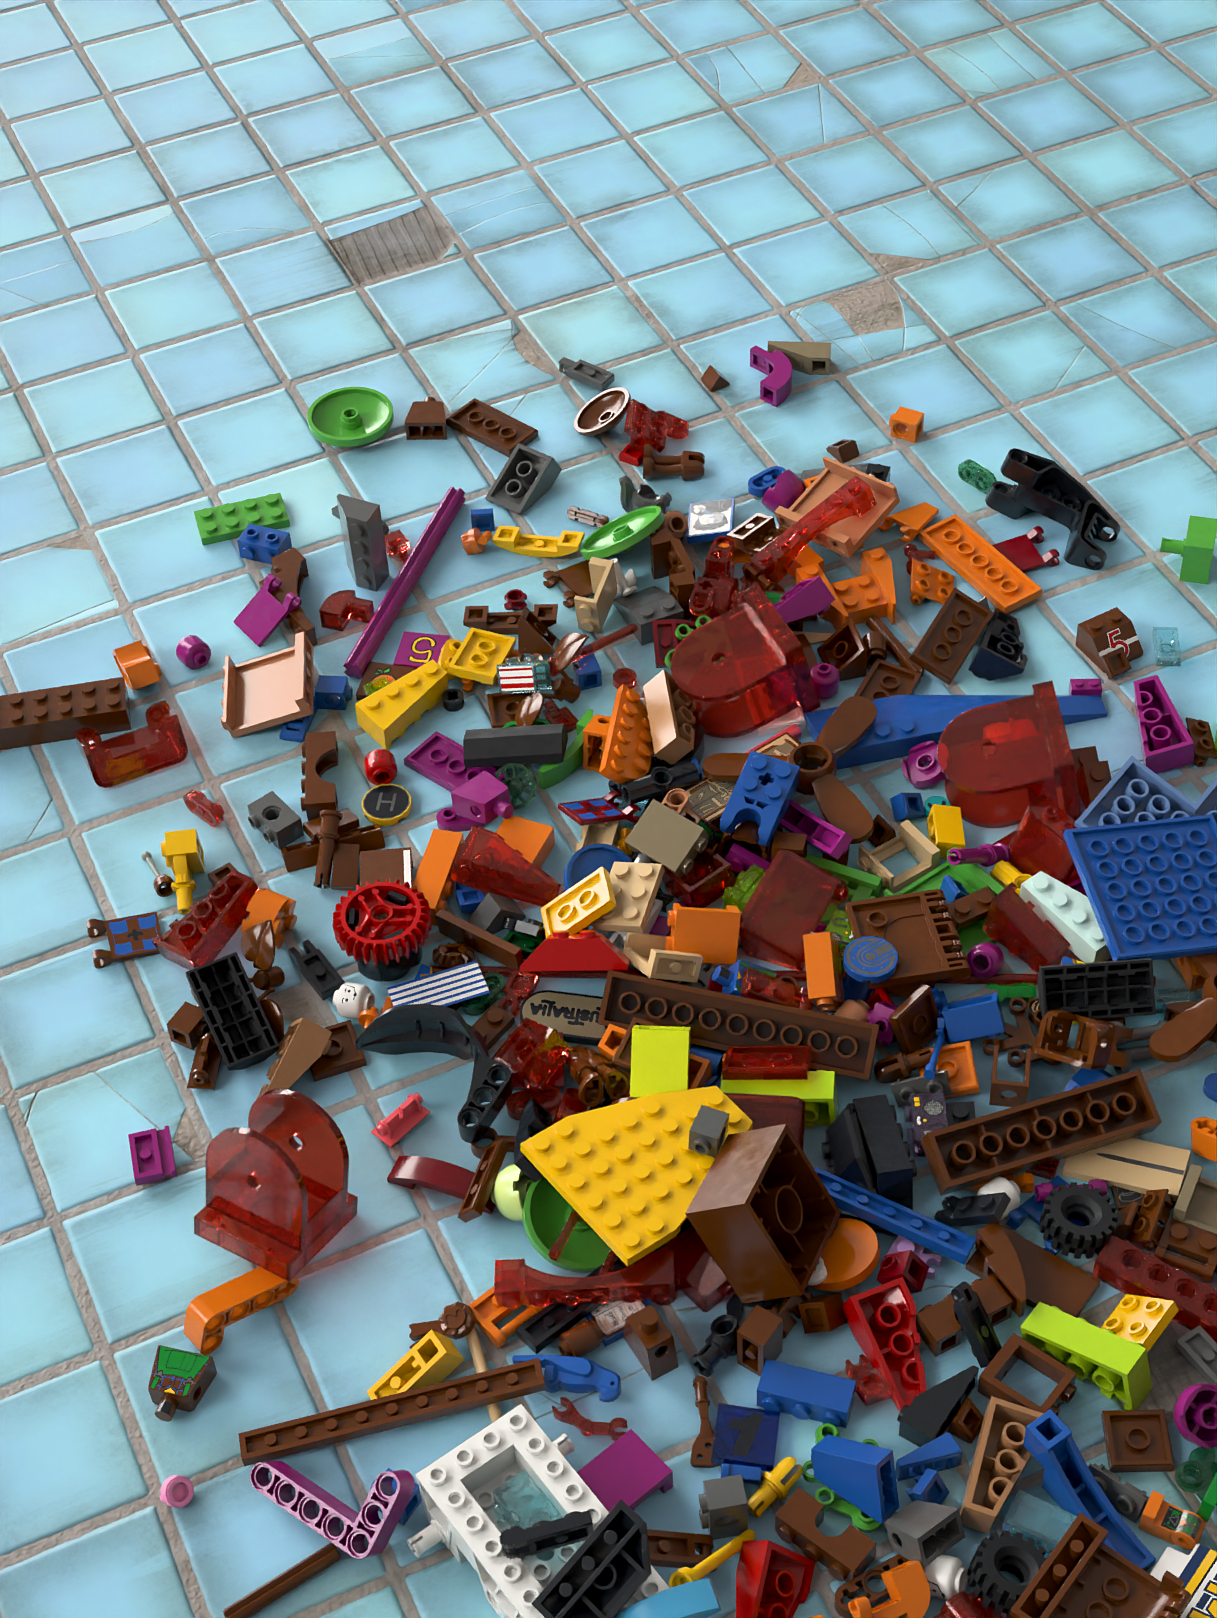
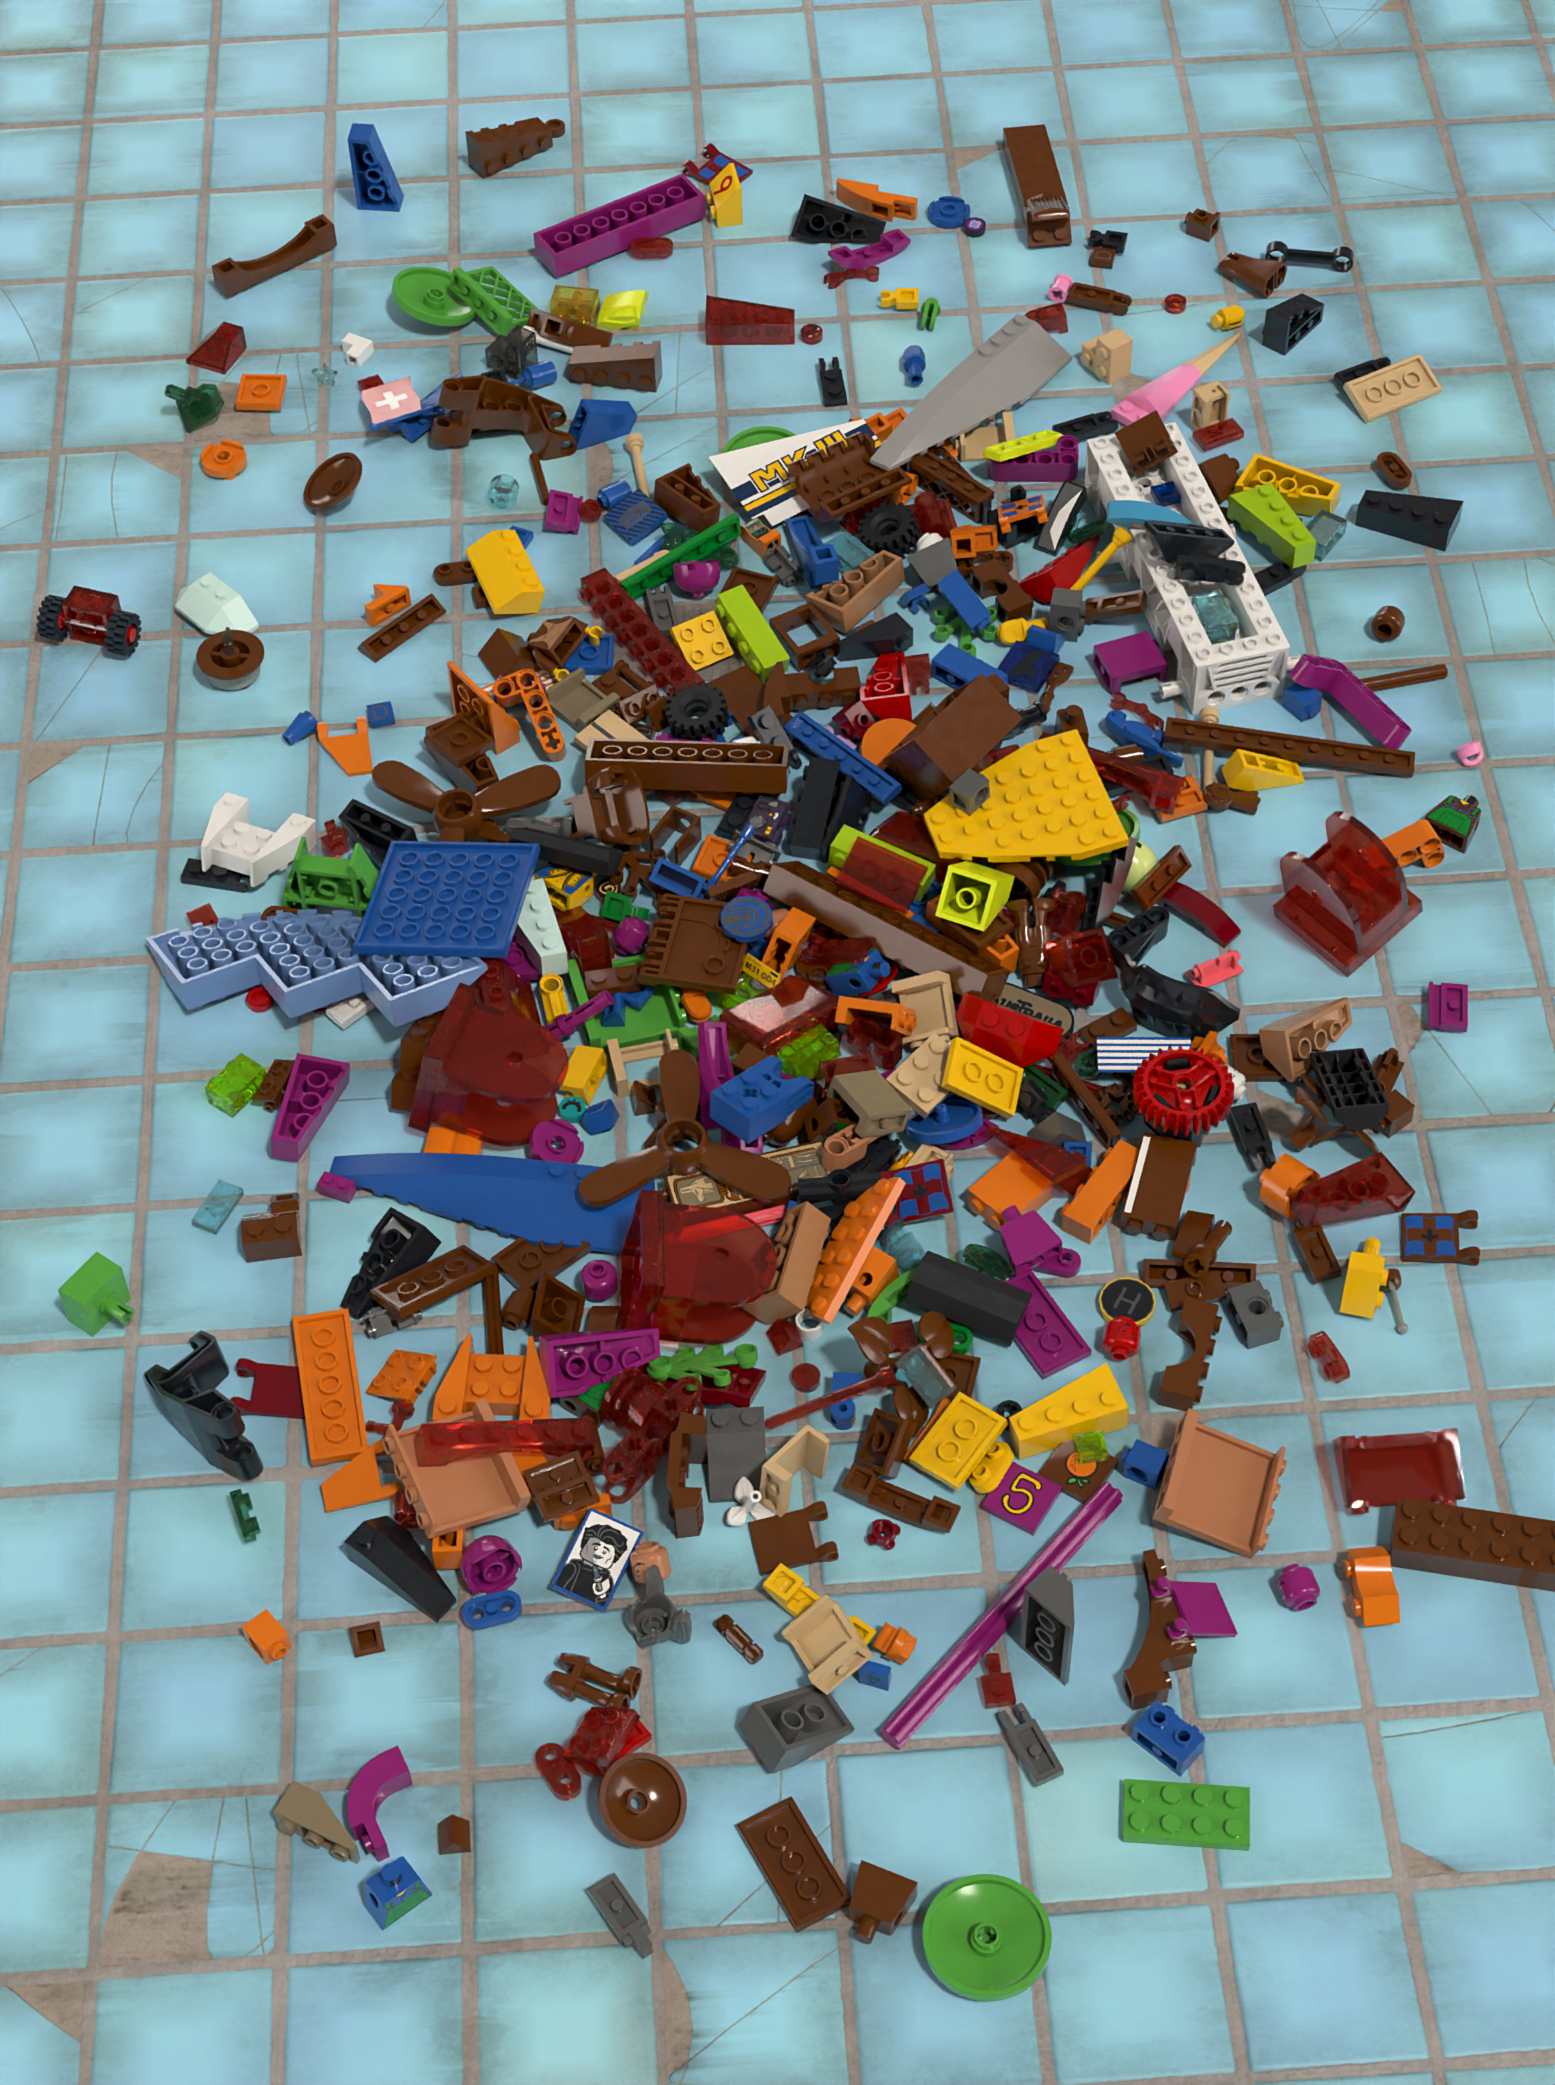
camera: 160 degrees left, 5 degrees up
(343, 607) = (1099, 1591): clear red brick -> none
(509, 510) = (827, 1644): none -> tan panel
(583, 775) = (901, 1246): none -> clear light blue cylinder
(622, 533) = (719, 1554): bright green dish -> none
(729, 337) = (394, 1892): none -> blue torso
(937, 1455) = (889, 607): blue slope -> none

